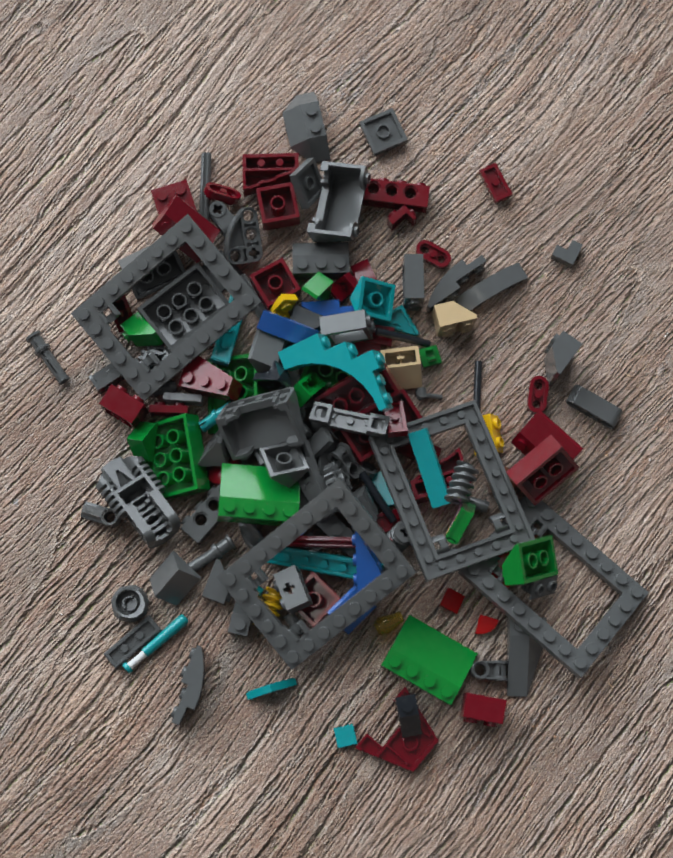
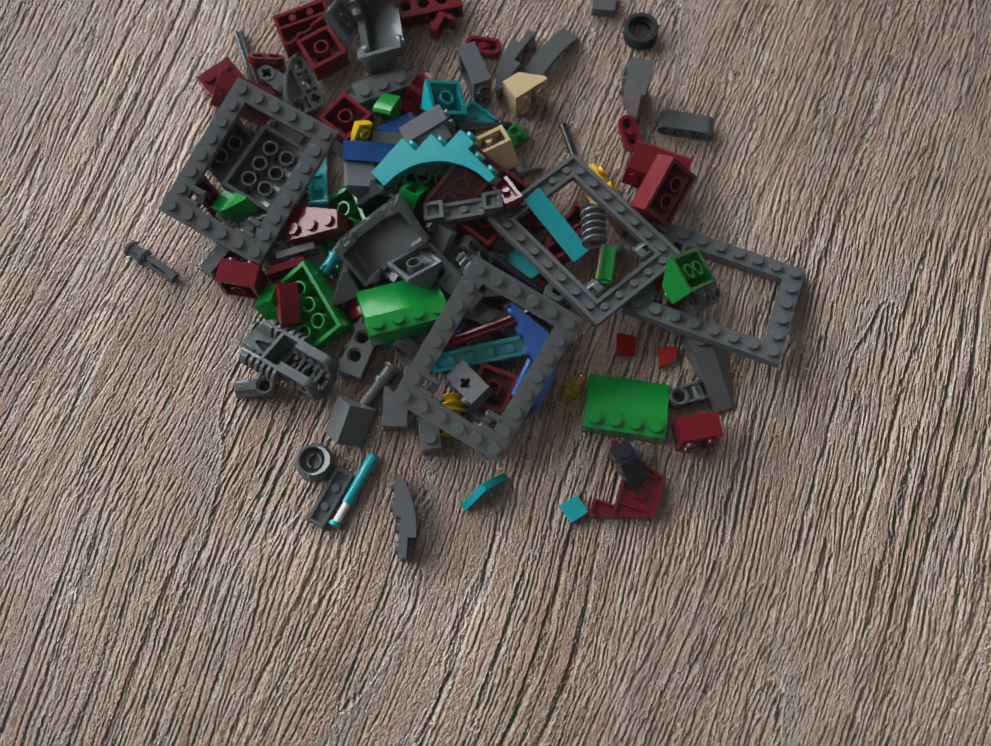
camera: 15 degrees left, 5 degrees down
(158, 448) = (288, 304): none -> dark red slope
(599, 283) = (643, 19): none -> black tyre

